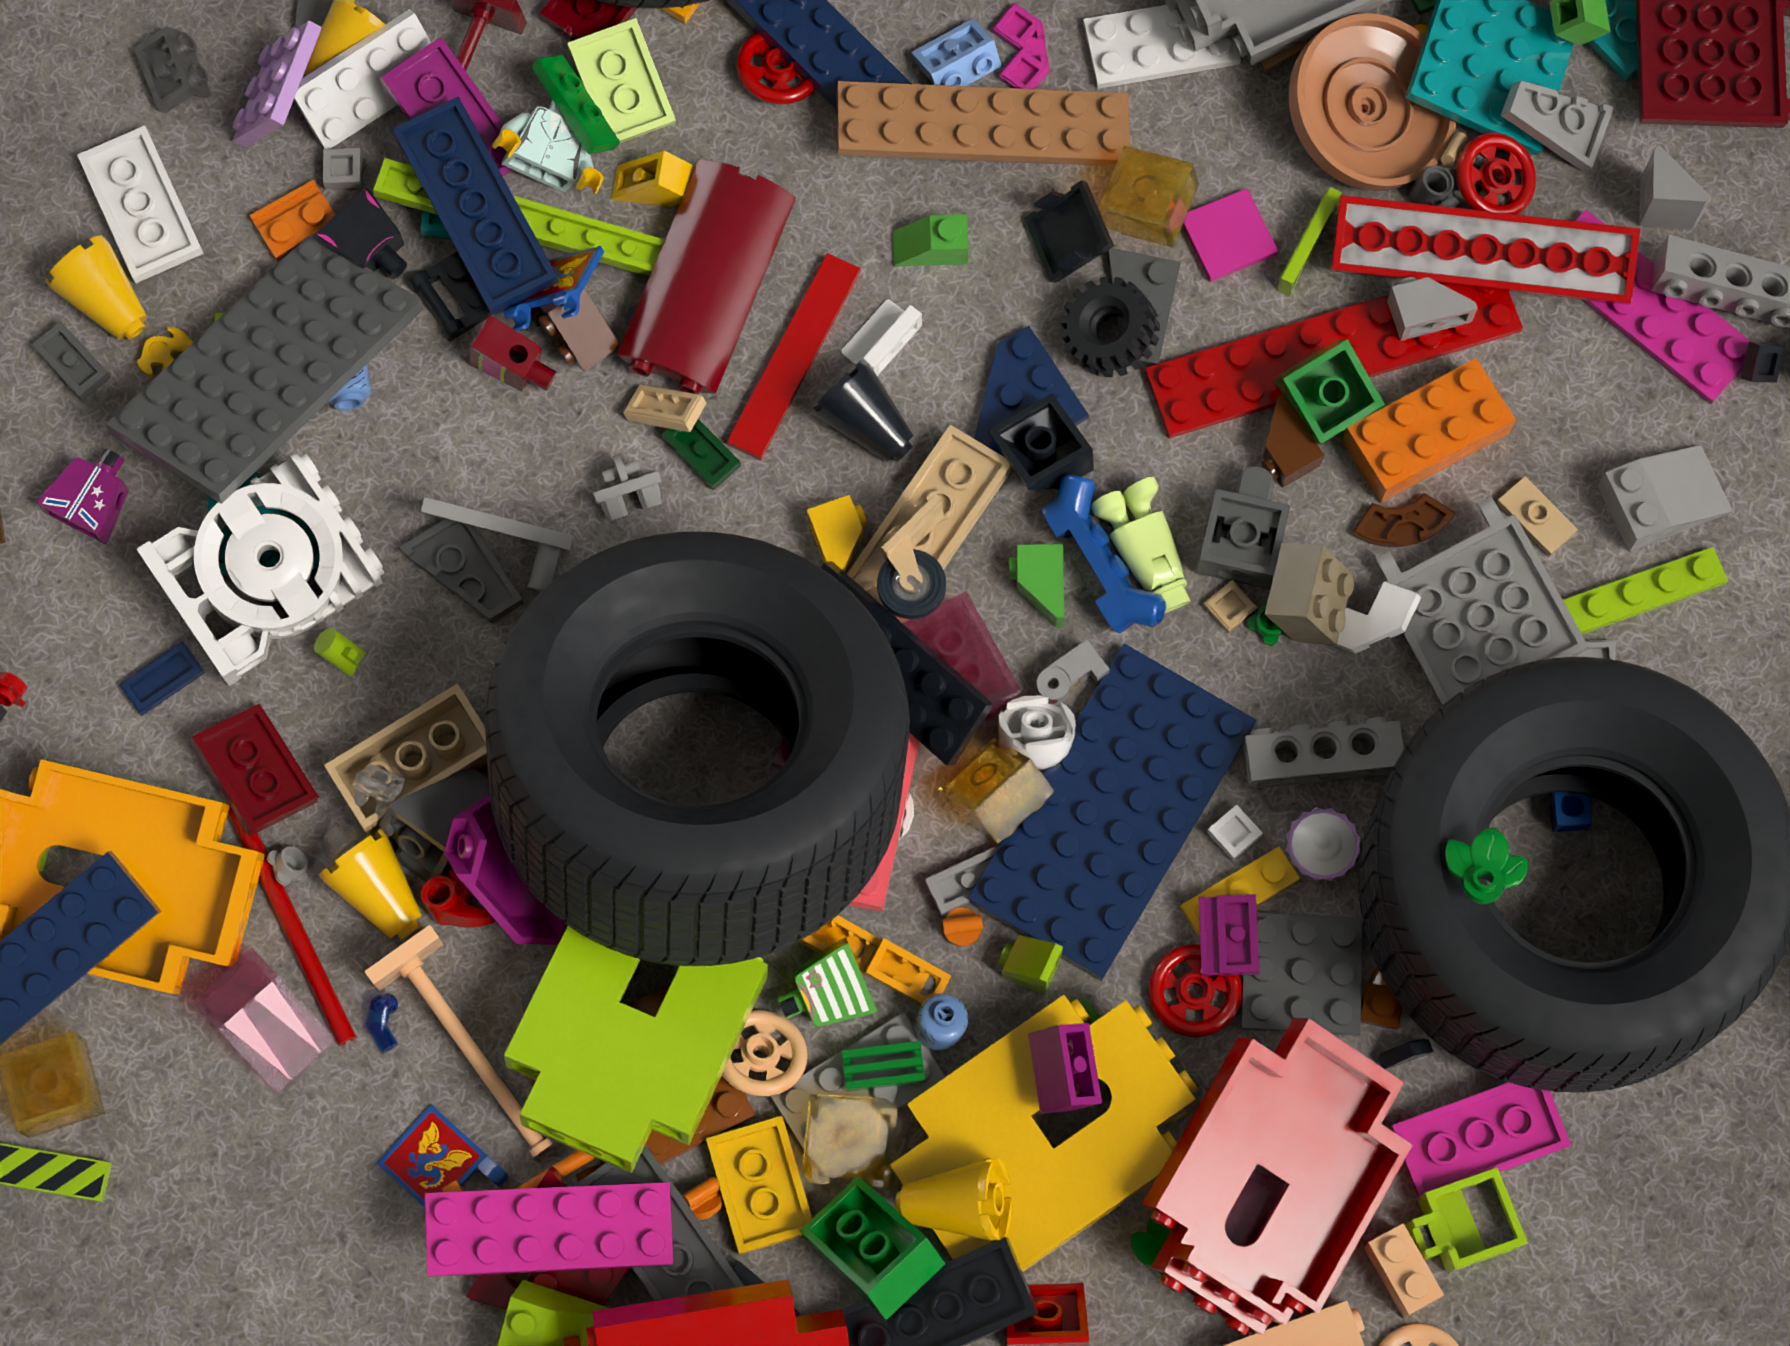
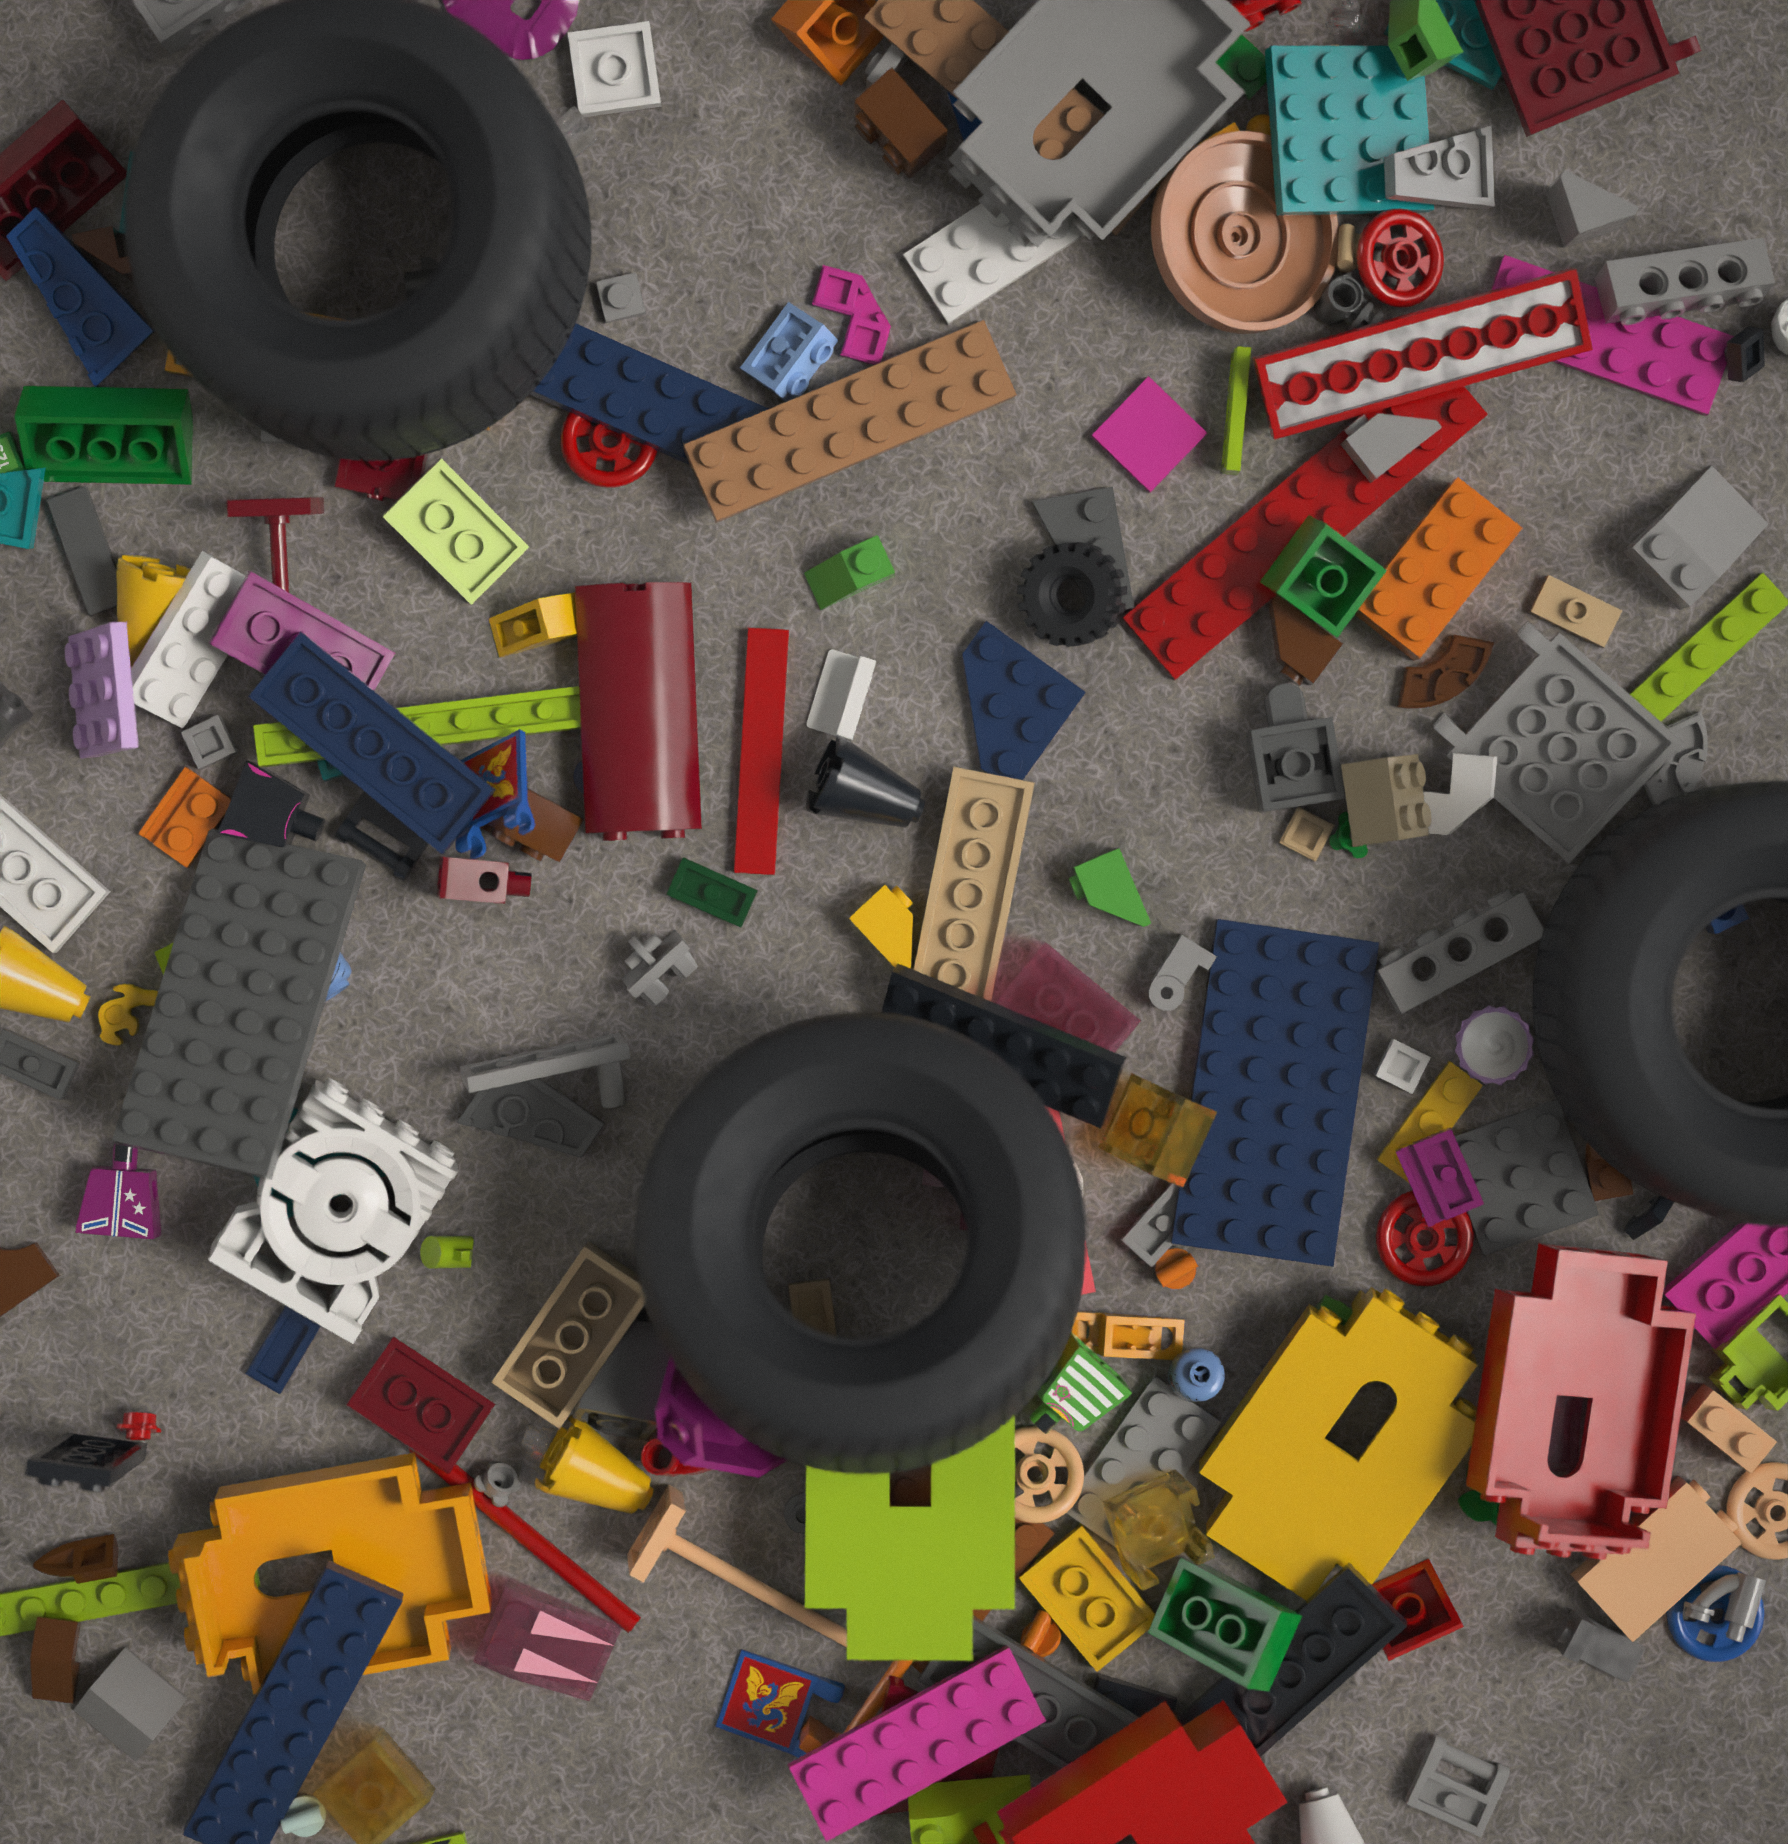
camera: 25 degrees left, 15 degrees up
(377, 1019) = (655, 1596): clear blue arm -> none
(378, 784) = (556, 1387): clear tile -> none
(547, 150) = (415, 636): light aqua torso -> none
(575, 104) = (421, 580): green plate -> none
(664, 408) = (657, 866): tan plate -> none
(884, 1050) = (1168, 1455): green tile -> none
(911, 580) = (987, 957): plate -> none
(960, 1200) = (1292, 1553): yellow cone -> none
(1031, 963) = (1259, 1283): lime slope -> none
(1037, 729) = (1171, 1050): white cylinder -> none
(1043, 445) = (1055, 752): black slope -> none
(1064, 1068) = (1344, 1393): magenta brick -> none
(1068, 230) = (986, 504): black piece -> none
(1070, 517) = (1201, 879): blue plate -> none
(1146, 542) = (1200, 807): yellowish green piece -> none
(1149, 196) = (1053, 432): clear yellow brick -> none
(1488, 860) = (1691, 1063): green plate -> none

